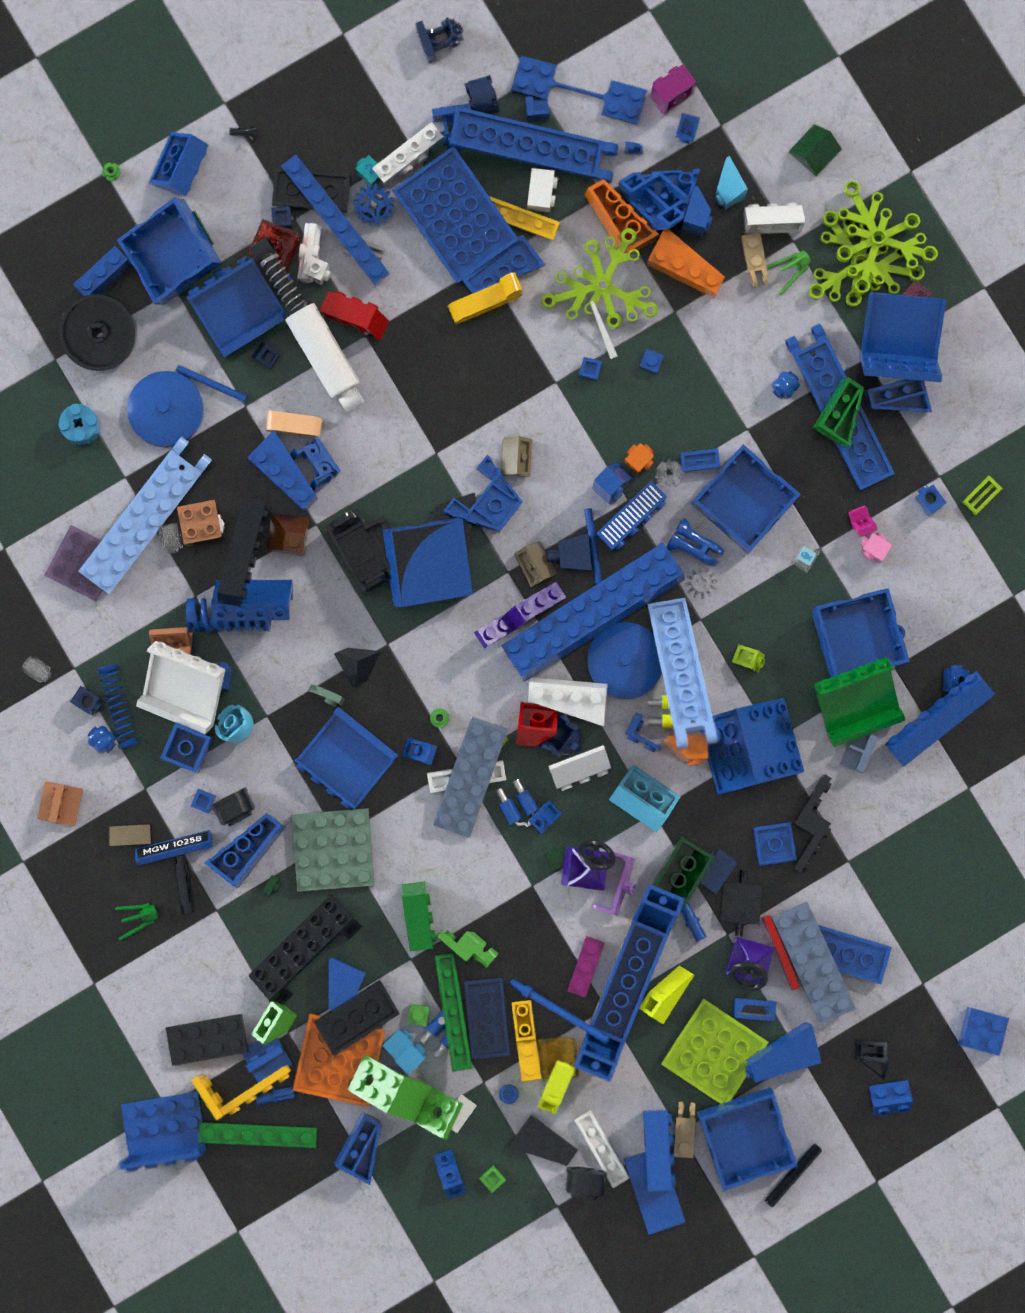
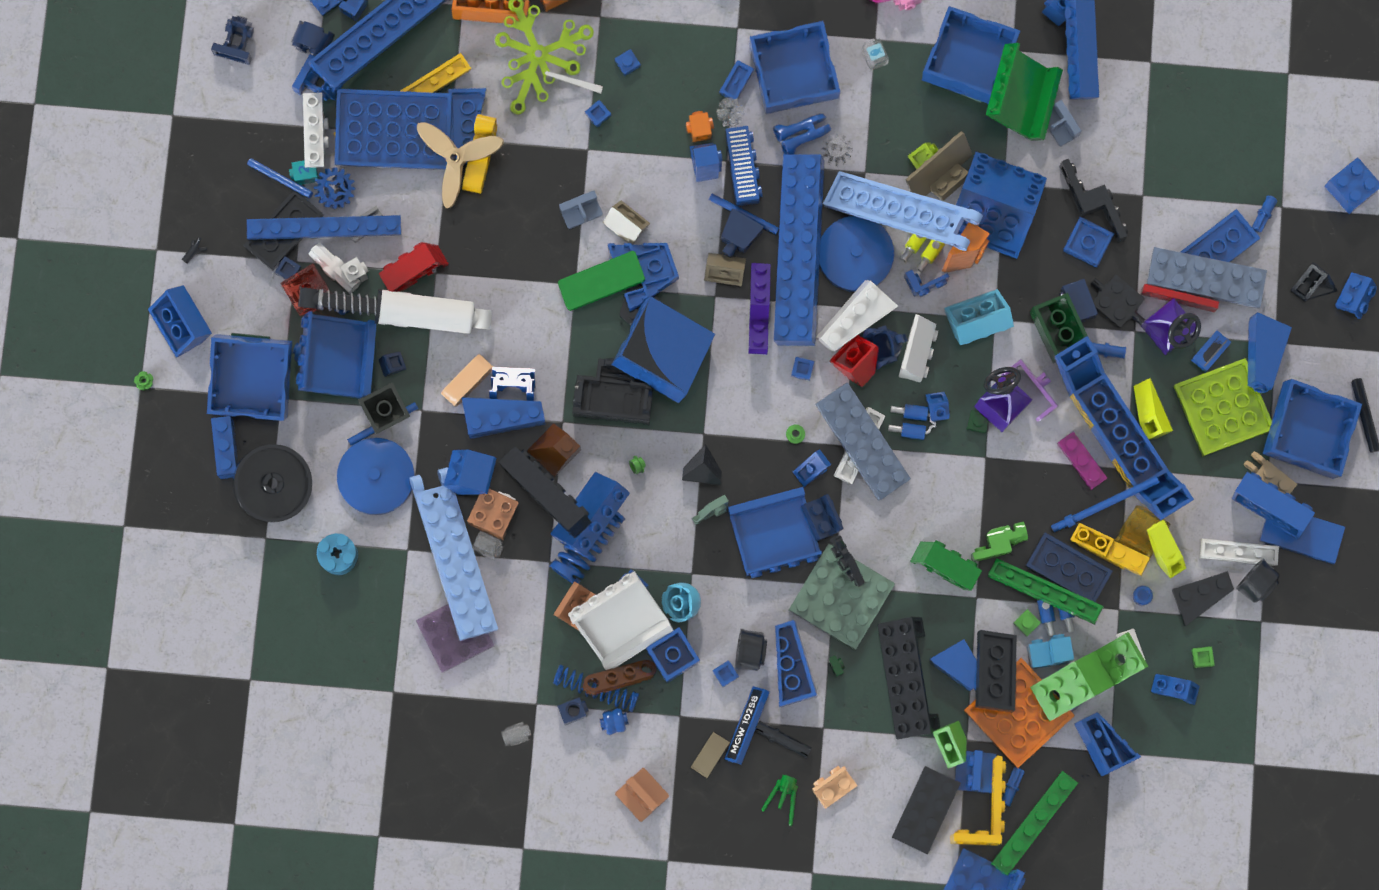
camera: 60 degrees left, 5 degrees down
(138, 718) = (619, 677): none -> reddish brown plate
(173, 952) = (833, 787): none -> light nougat bracket
(217, 480) = (469, 472): none -> blue slope
(222, 375) = (384, 408): none -> pearl dark grey slope
(322, 609) = (637, 465): none -> bright green plate
(351, 155) = (280, 178): none -> bar
(356, 834) = (846, 561): none -> black plate
(385, 788) = (822, 517): none -> dark blue bracket
(452, 471) = (601, 280): none -> green piece
(467, 281) = (443, 145): none -> tan piece
(497, 685) = (802, 368): none -> blue plate
(500, 413) = (580, 209): none -> sand blue panel
(540, 190) = (424, 48): white brick -> none
(745, 682) = (943, 171): none -> dark tan bracket
(904, 973) = (1264, 213): none -> blue axle

